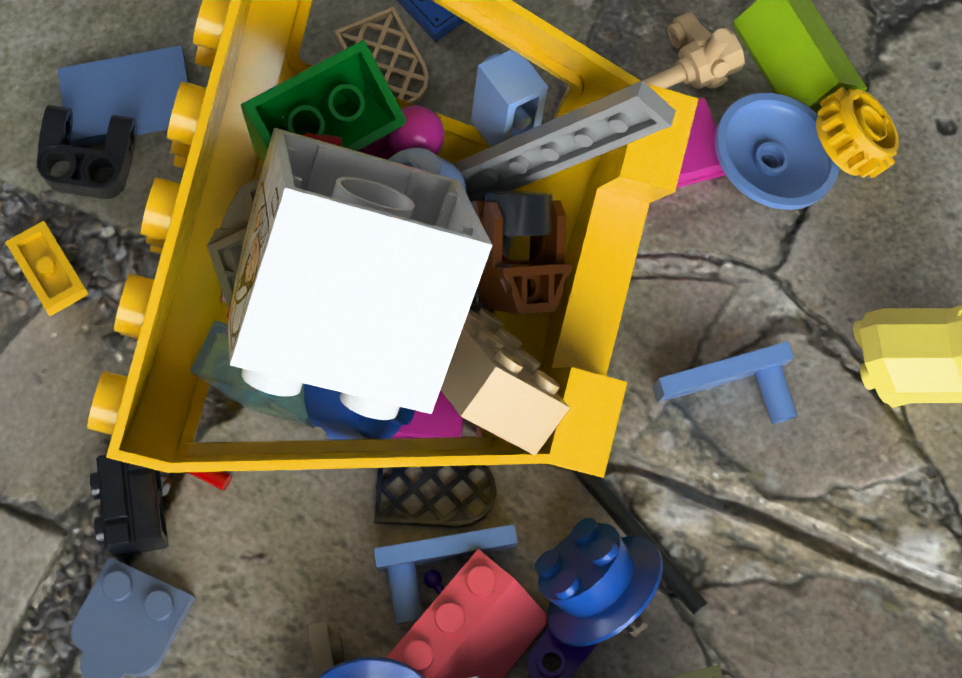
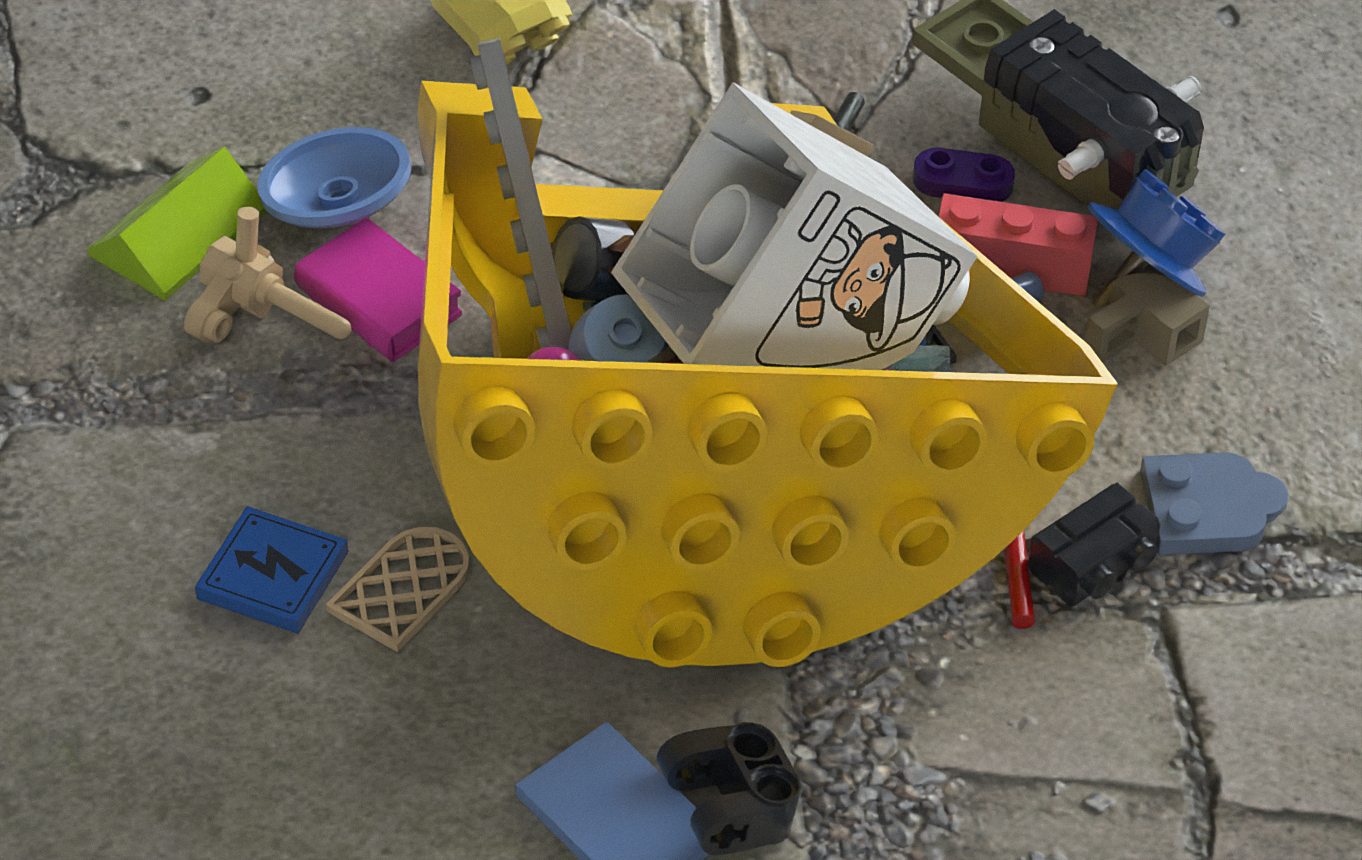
camera: 120 degrees left, 20 degrees down
(46, 268) = (896, 766): yellow plate -> none
(507, 97) = (483, 297): light blue brick -> none
(598, 583) = (915, 124): blue piece -> none
(763, 363) = (596, 138): medium blue piece -> none
(857, 132) = (273, 124): yellow gear -> none

